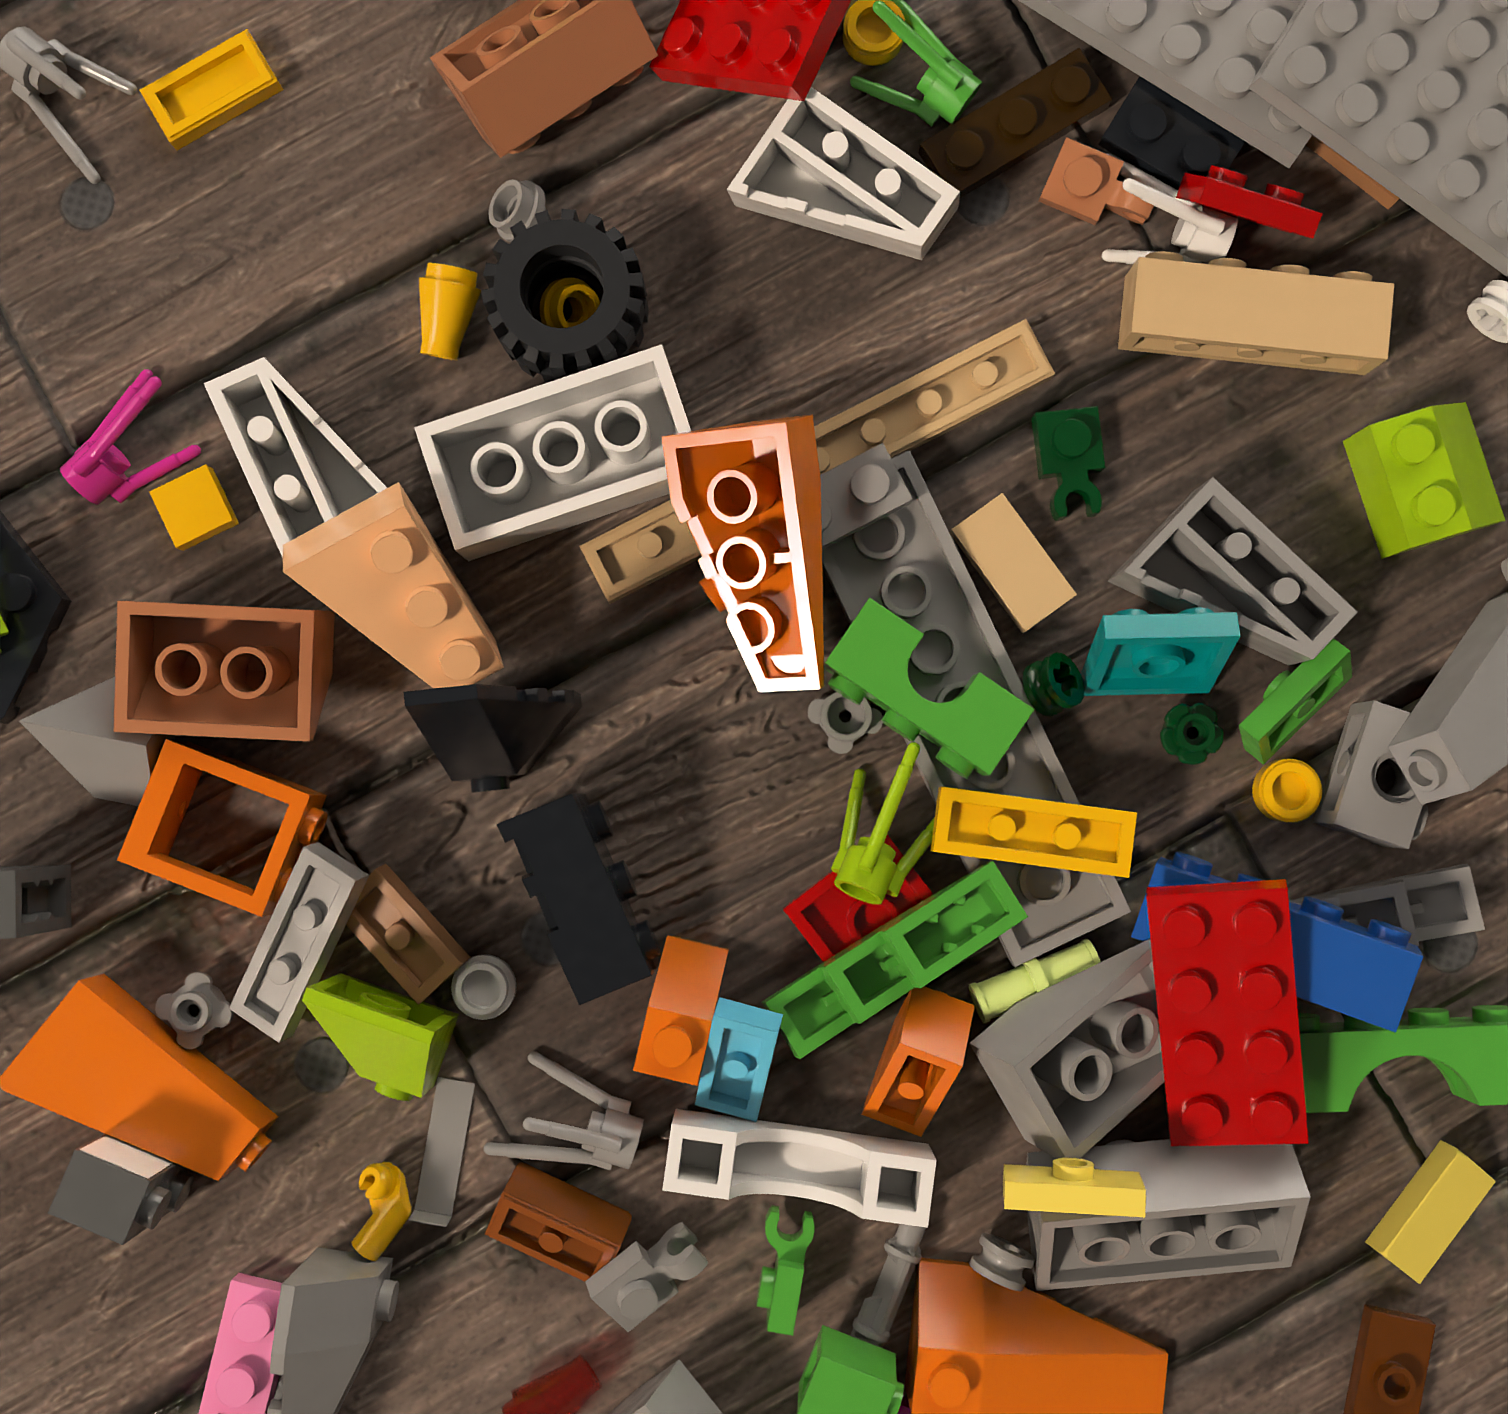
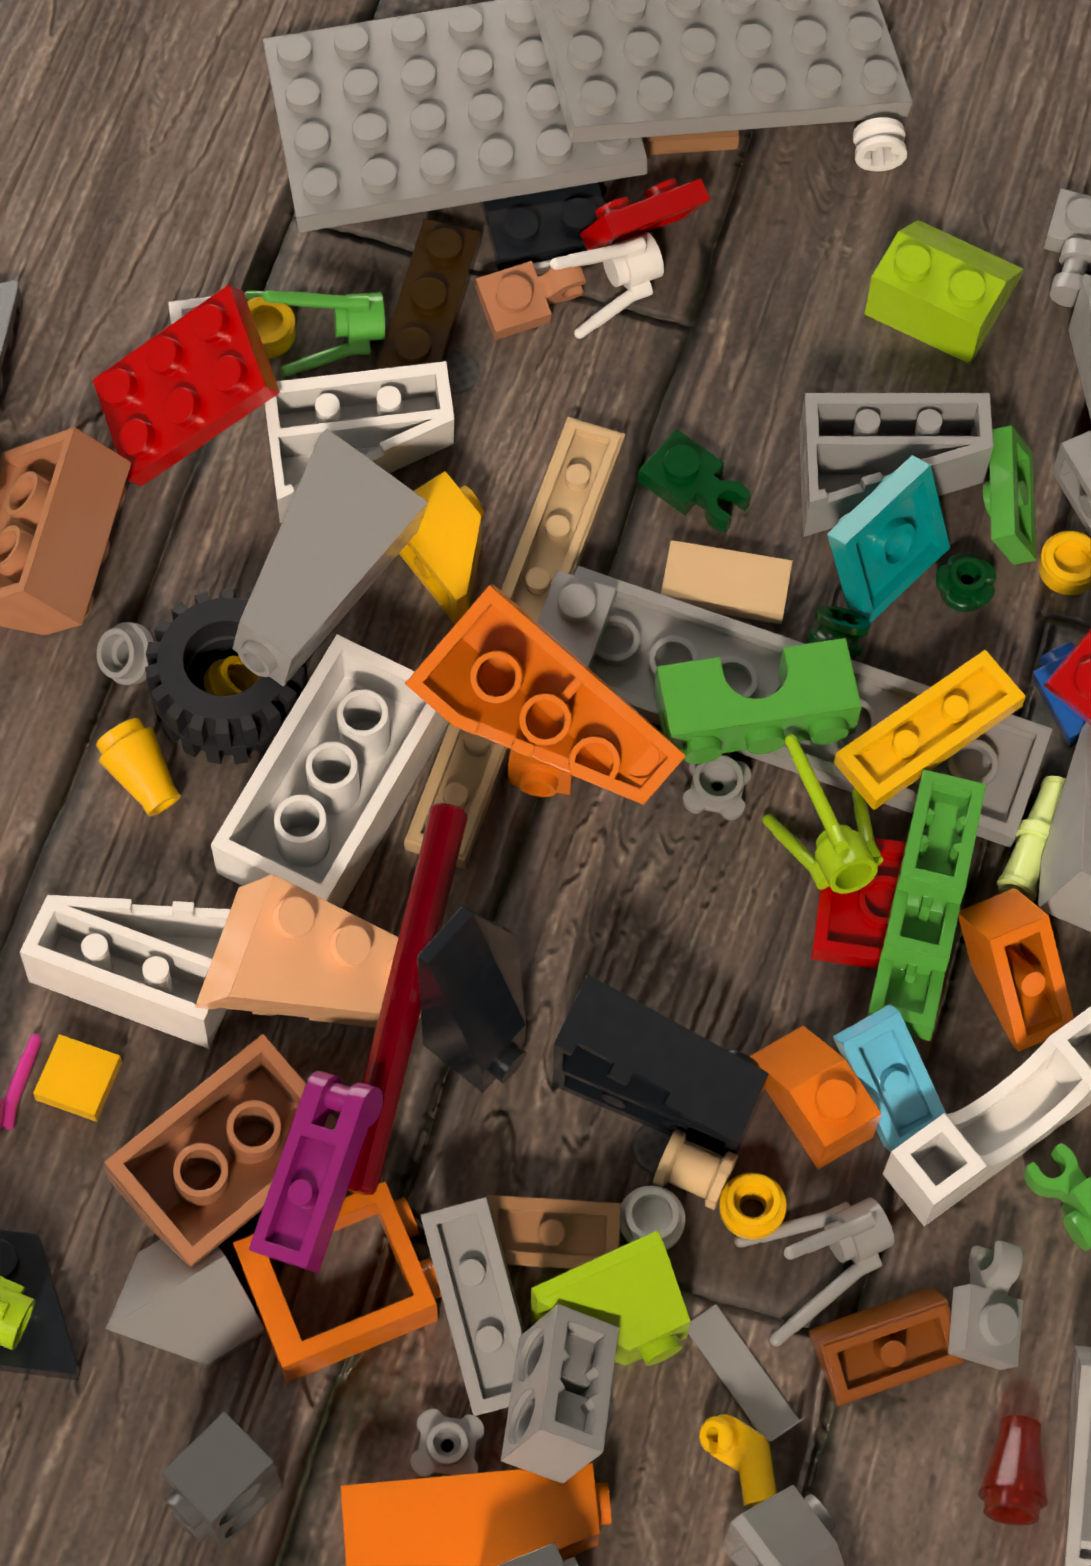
camera: 50 degrees left, 20 degrees down
(246, 752) = (315, 1171): none -> magenta plate
(266, 1074) = (560, 1394): none -> light grey brick
(446, 669) = (401, 999): none -> dark red axle
(544, 985) = (695, 1168): none -> tan bush
(544, 1056) = (756, 1187): none -> yellow plate
(707, 272) = (328, 552): none -> light grey slope
(831, 334) = (447, 544): none -> yellow slope
(1256, 314) = (720, 282): tan brick -> none

